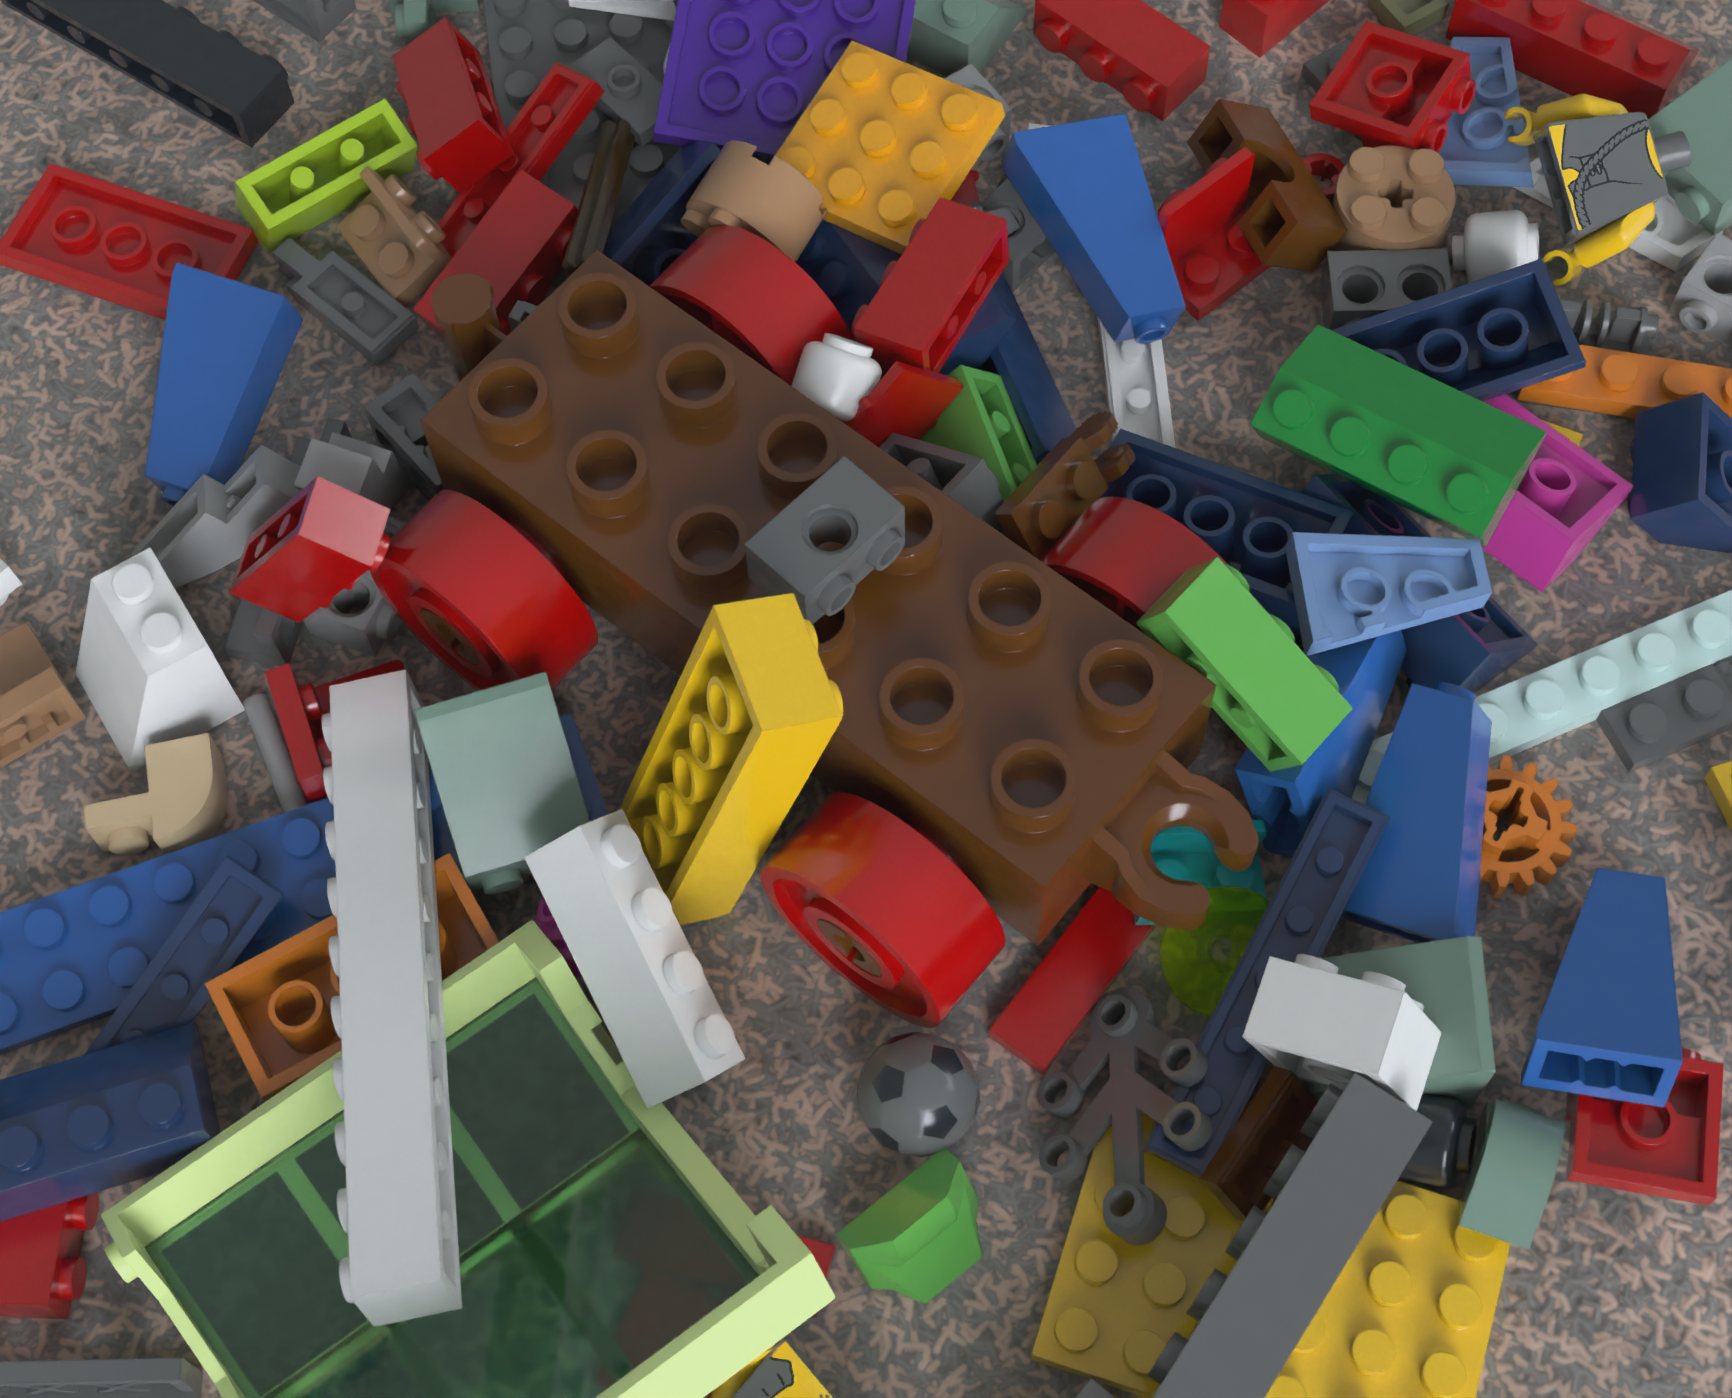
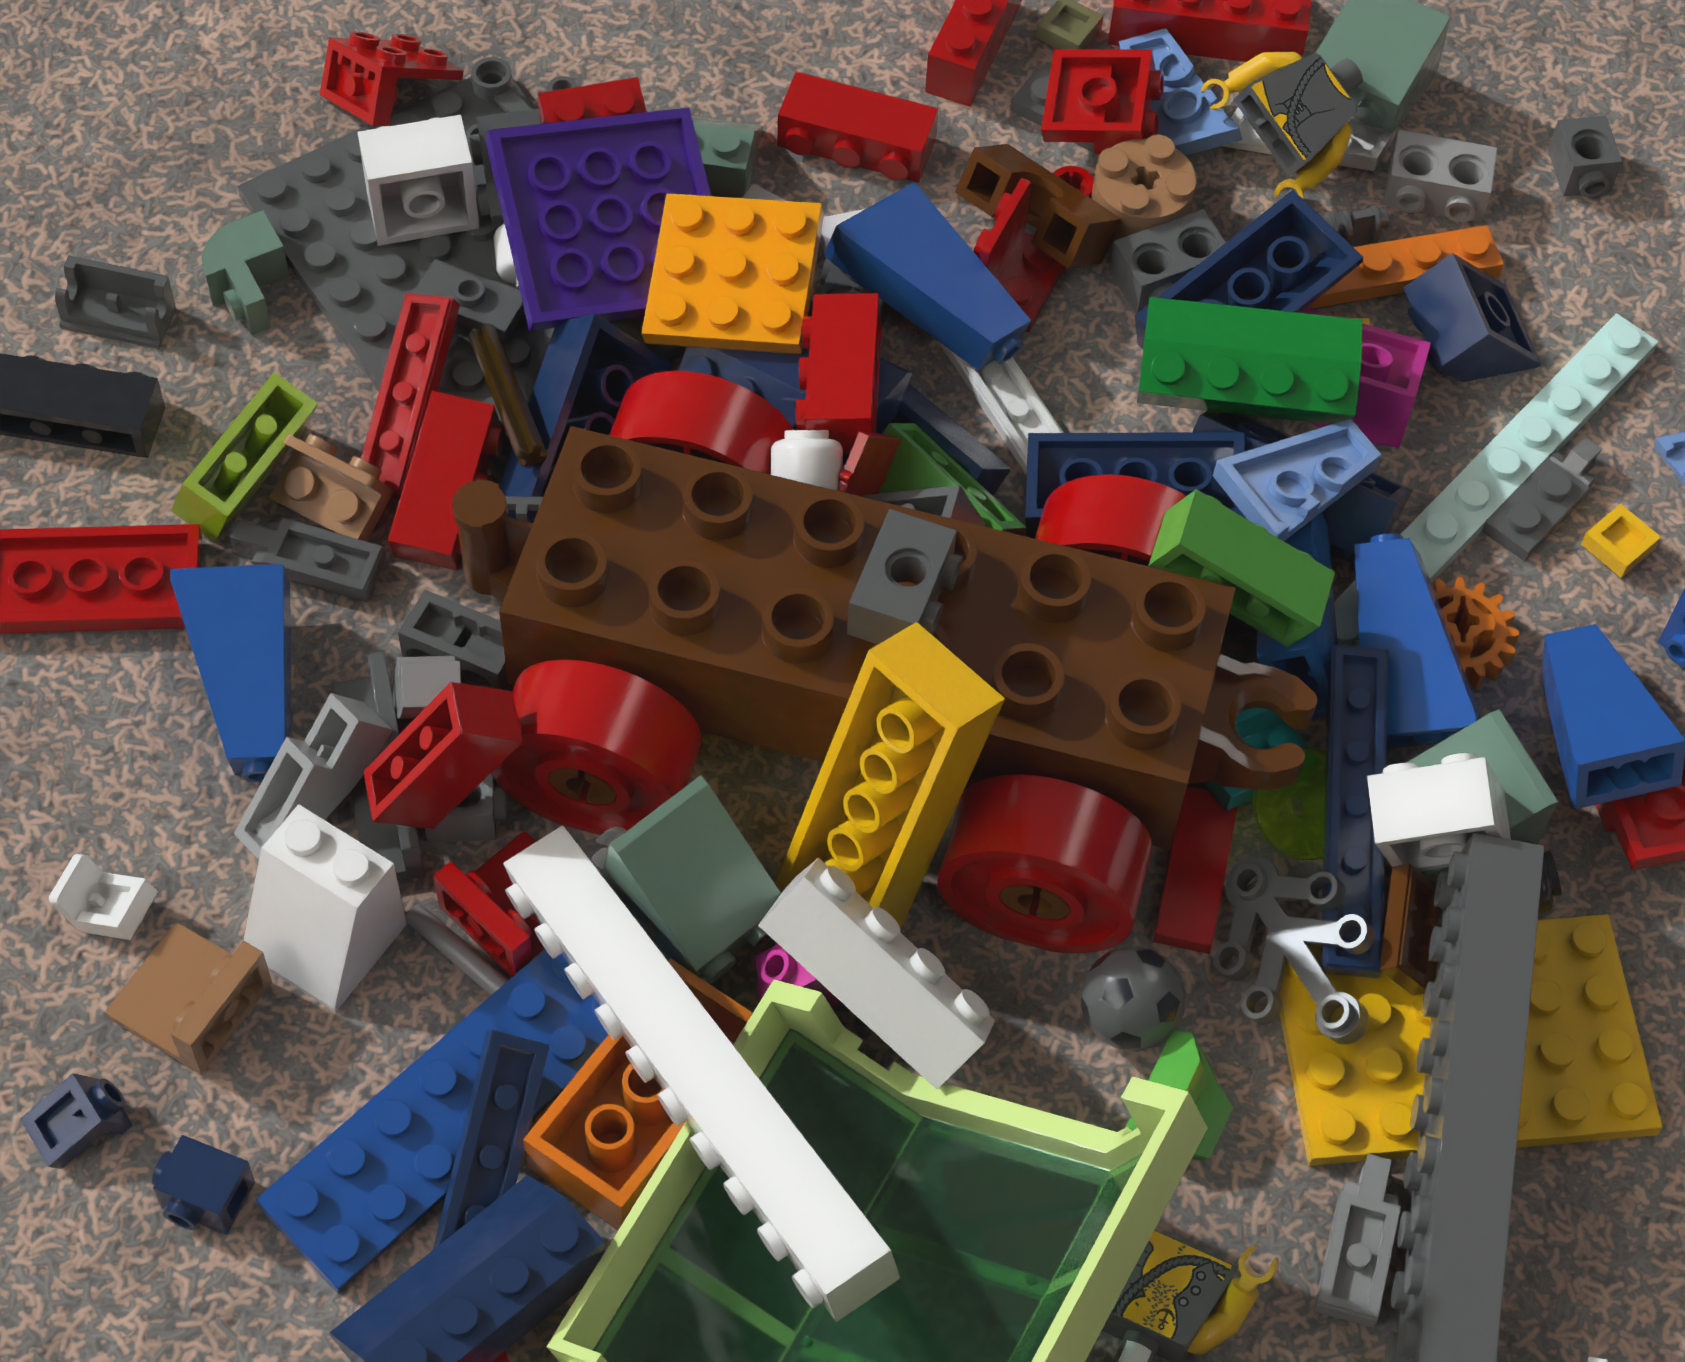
camera: 30 degrees left, 5 degrees down
(182, 803) = (401, 1020): tan brick -> none
(451, 106) = (326, 362): red brick -> none
(756, 197) = (655, 342): medium nougat brick -> none
(1063, 486) = (1020, 481): reddish brown hinge -> none
(1495, 244) = (1236, 196): white head -> none
(1511, 1172) = (1595, 876): sand green brick -> none

